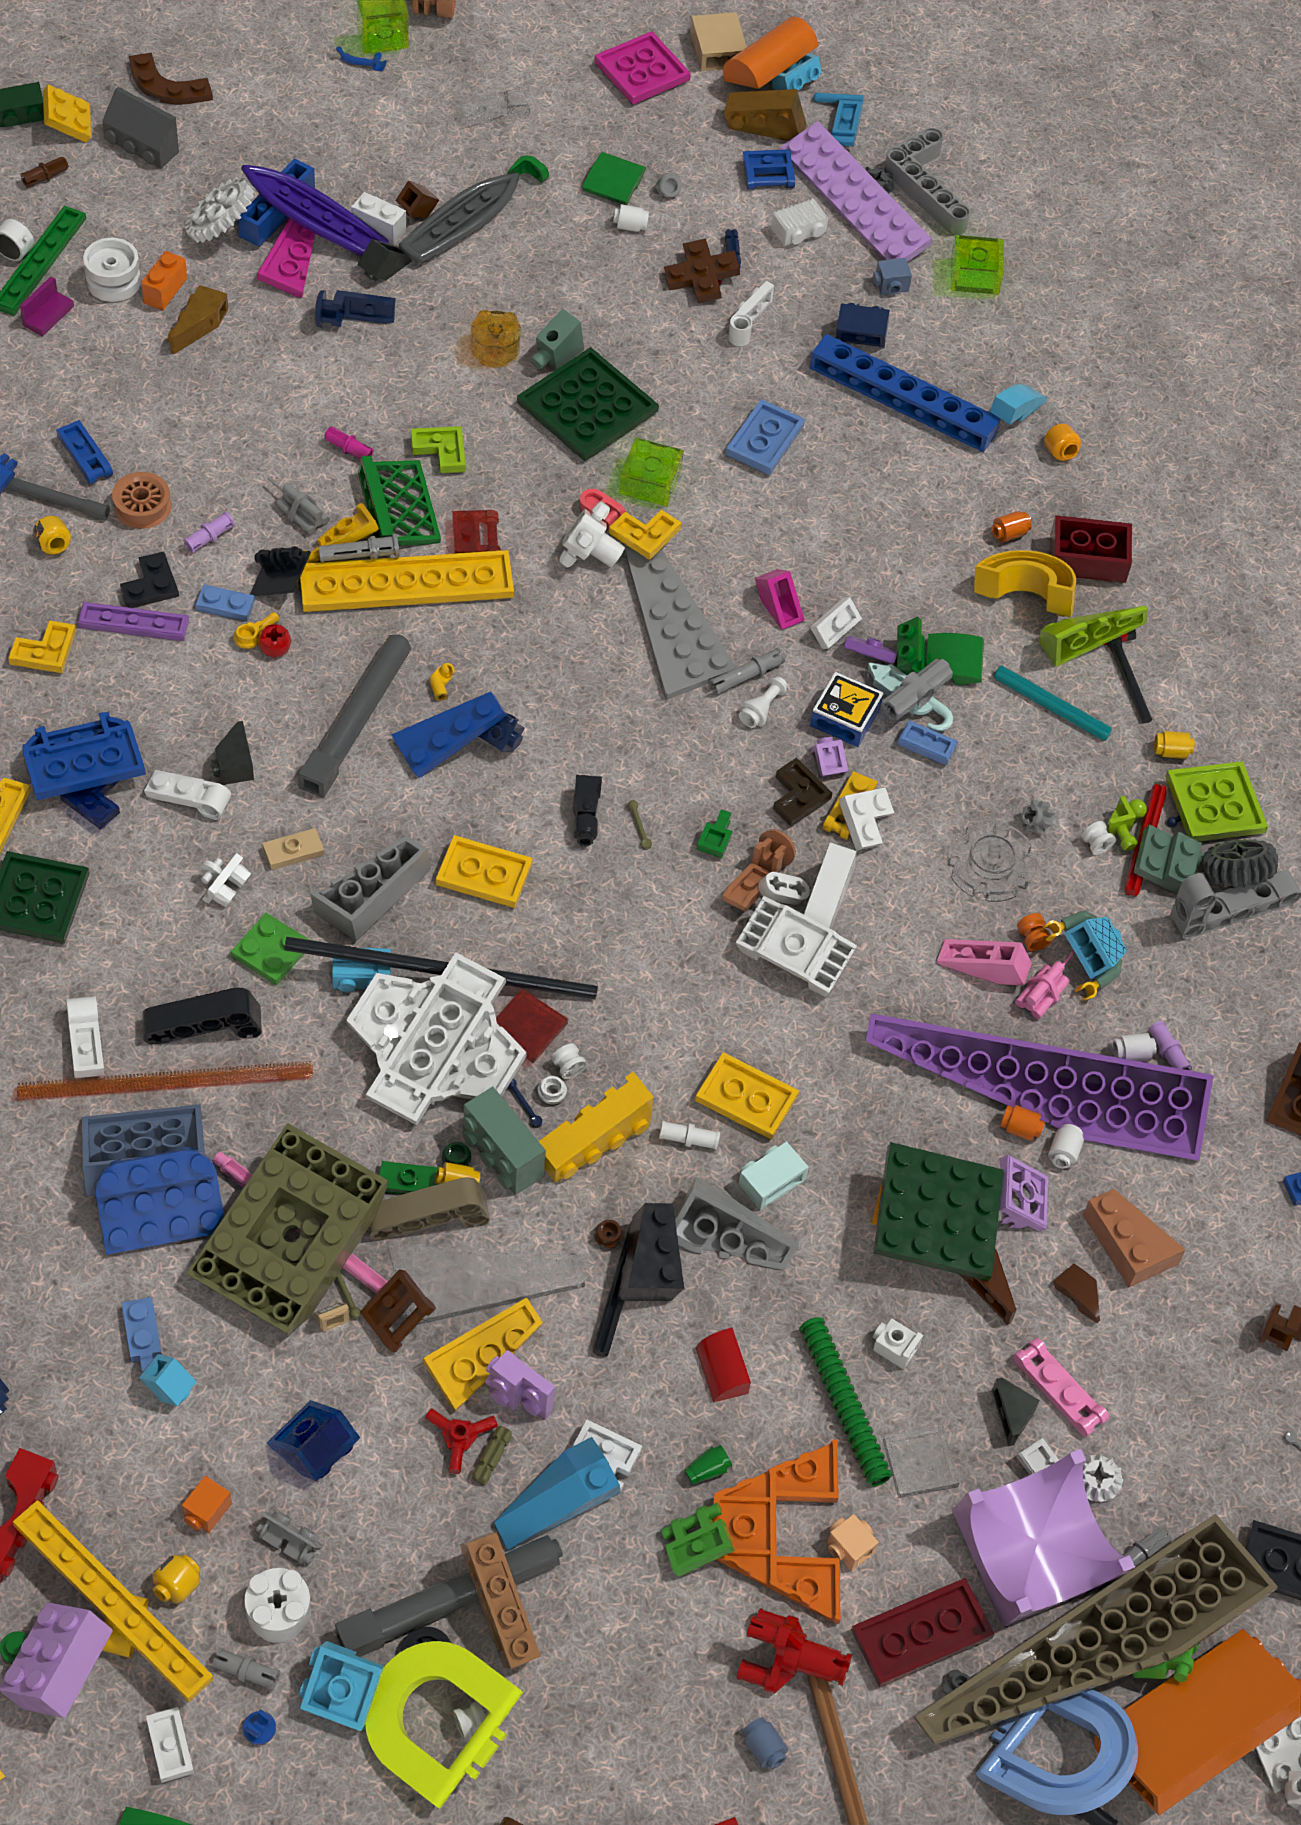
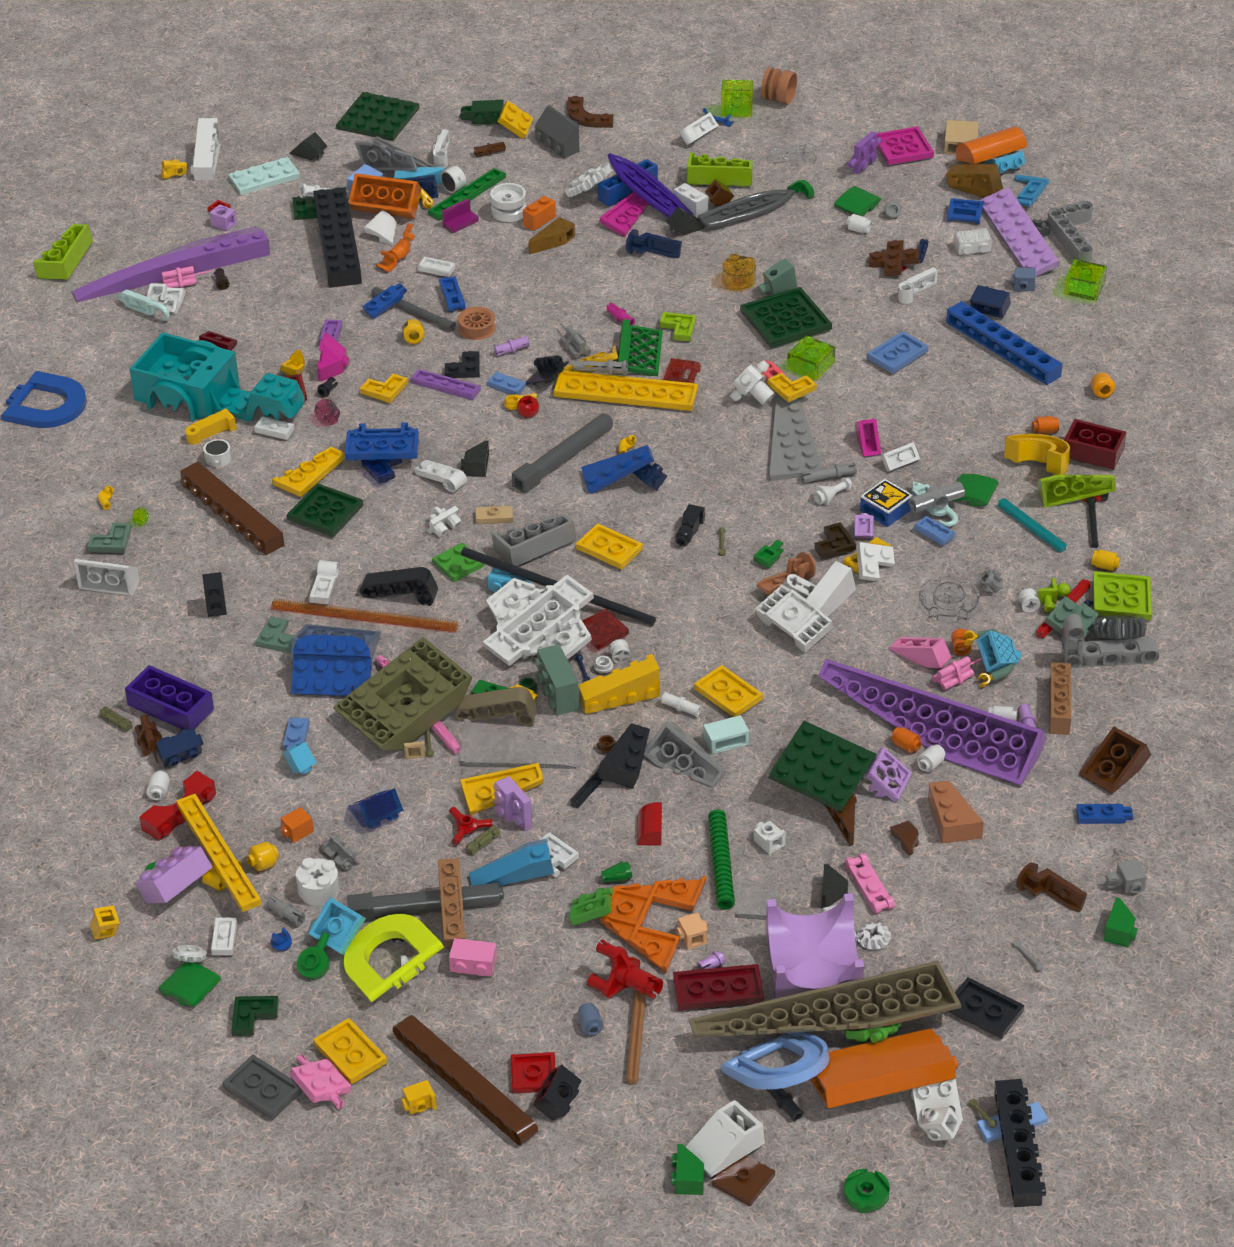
camera: 25 degrees right, 15 degrees down
(41, 1158) = (273, 635): none -> sand green plate
(42, 406) = (436, 266): none -> white plate
(130, 1787) = (189, 953): none -> white gear
(325, 1754) = (314, 961): none -> green piece
(342, 85) = (698, 128): none -> white plate
(391, 1304) = (451, 748): reddish brown plate -> none
(400, 158) = (705, 170): none -> lime wedge
(560, 1683) = (473, 957): none -> bright pink brick
(599, 93) = (864, 152): none -> medium lavender plate
(872, 648) = (919, 474): medium lavender plate -> none
(896, 1589) = (712, 961): none -> lavender pin
(910, 646) = (944, 474): green bracket -> none
(1017, 403) = (1078, 357): medium azure slope -> none
(1201, 1001) = (1060, 698): none -> medium nougat brick

